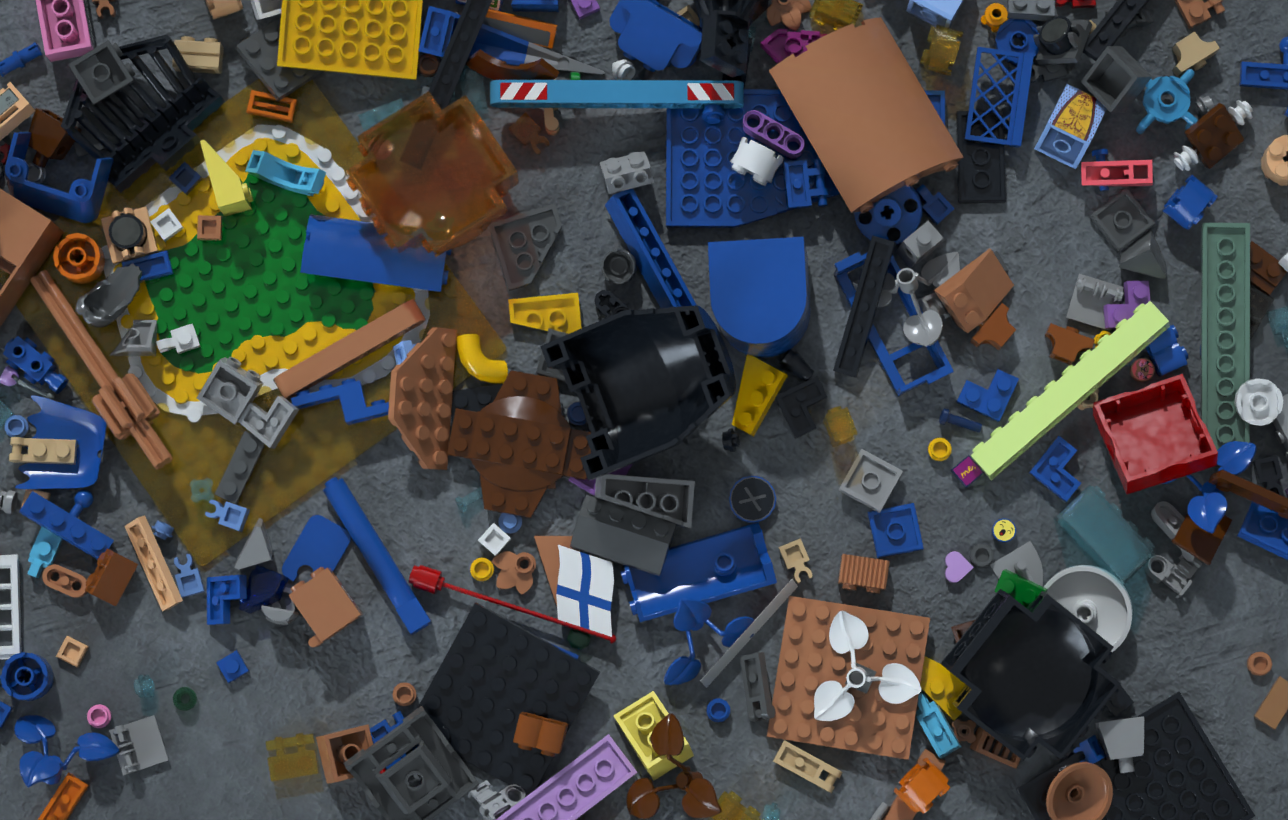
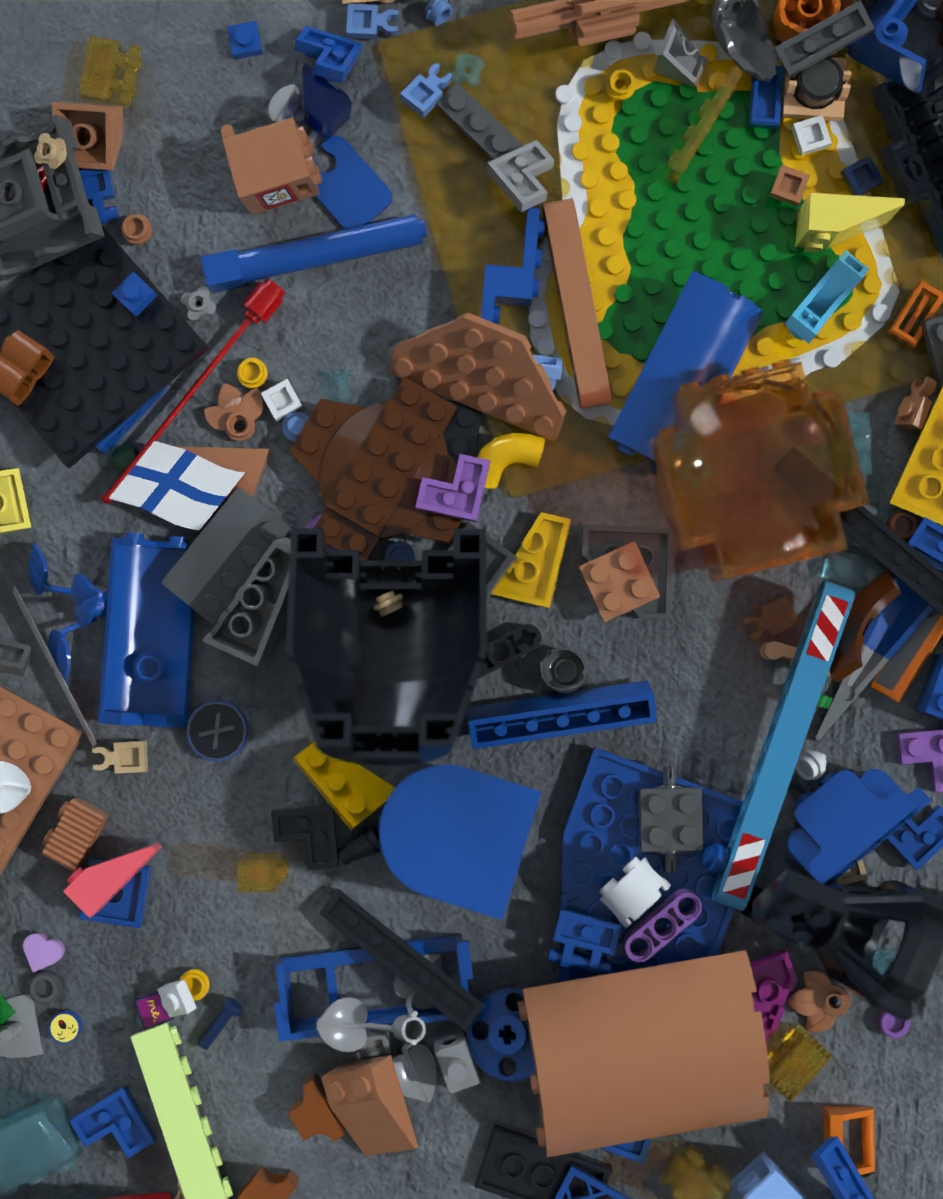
camera: 105 degrees right, 5 degrees up
(100, 236) = (824, 39): none -> dark grey plate
(169, 370) = (620, 76): none -> yellow plate
(182, 339) = (661, 107): white plate -> none
(195, 306) = (709, 112): none -> clear yellow plate
(230, 389) = (579, 142): light grey plate -> none
(257, 547) = (370, 109): light grey slope -> none
(340, 84) = (915, 408): none -> nougat plate
(373, 754) = (57, 151): none -> tan plate
(450, 627) = (205, 309): none -> light grey plate
(456, 669) = (134, 294): none -> blue plate
(521, 377) = (458, 499): none -> medium lavender plate
(541, 248) = (619, 581): none -> nougat plate
(616, 403) = (388, 603): none -> tan plate
(626, 172) = (678, 722): light grey plate -> none
(697, 154) = (670, 819): none -> dark grey plate
(730, 440) = (297, 730): black plate -> none
(870, 480) = (184, 885): light grey plate -> none
(887, 537) = (102, 881): none -> coral slope
(935, 206) = (499, 1095): blue plate -> none
(952, 455) = (176, 998): none -> white plate
(990, 401) = (231, 1075): blue plate -> none

